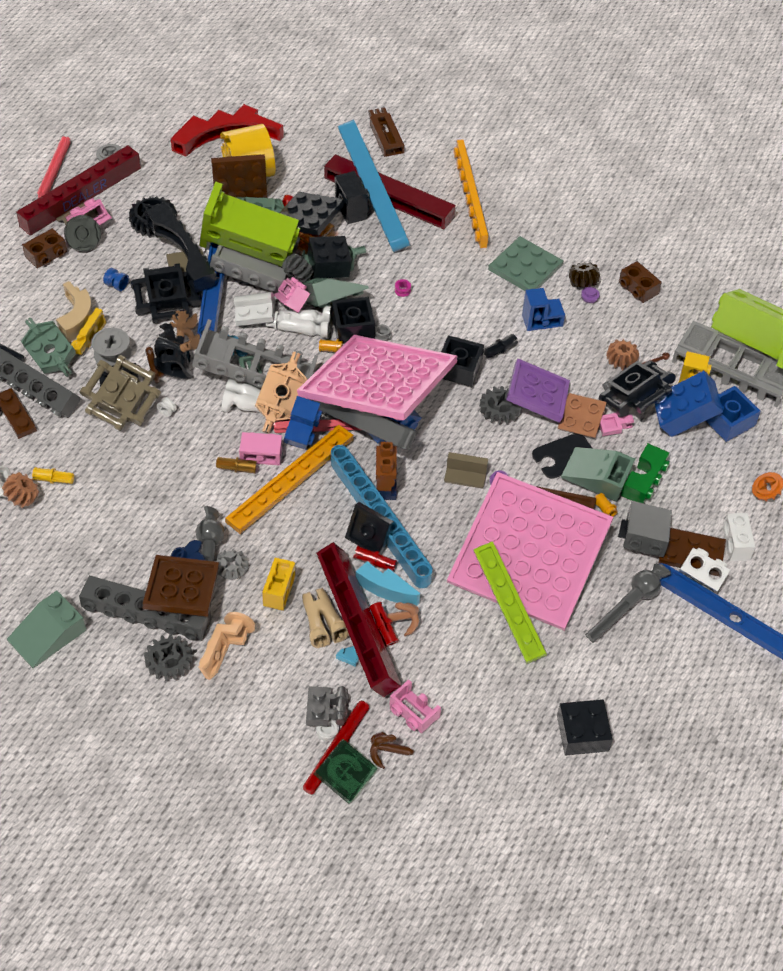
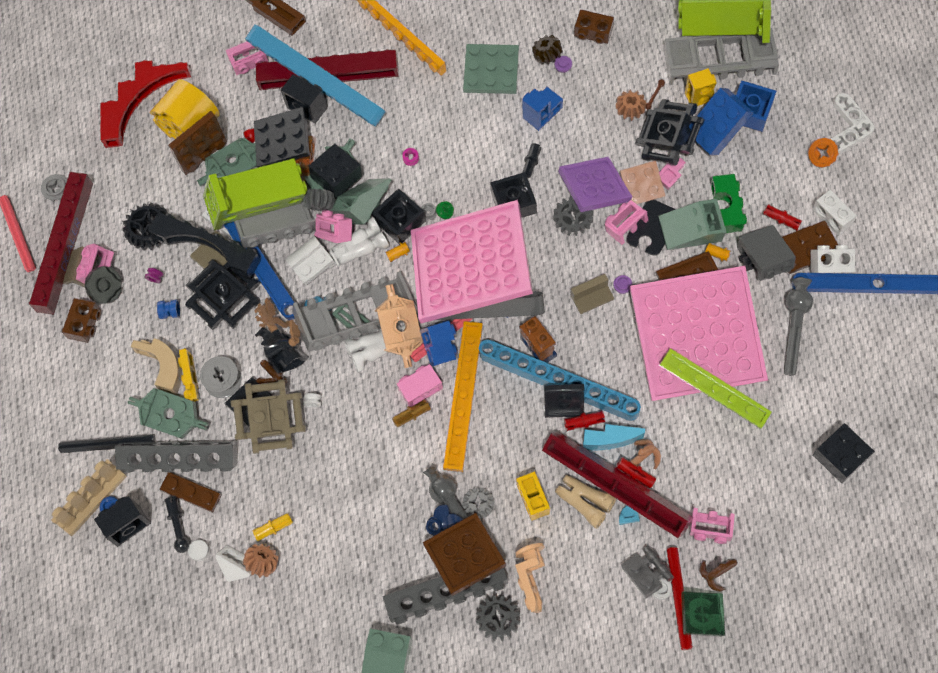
camera: 25 degrees left, 15 degrees up
(126, 251) = (153, 275): none -> magenta bush
(326, 152) = (247, 63): none -> bright pink window
(398, 335) = (447, 207): none -> green plate
(542, 430) = (629, 224): none -> bright pink window
(687, 514) = (782, 217): none -> red pin

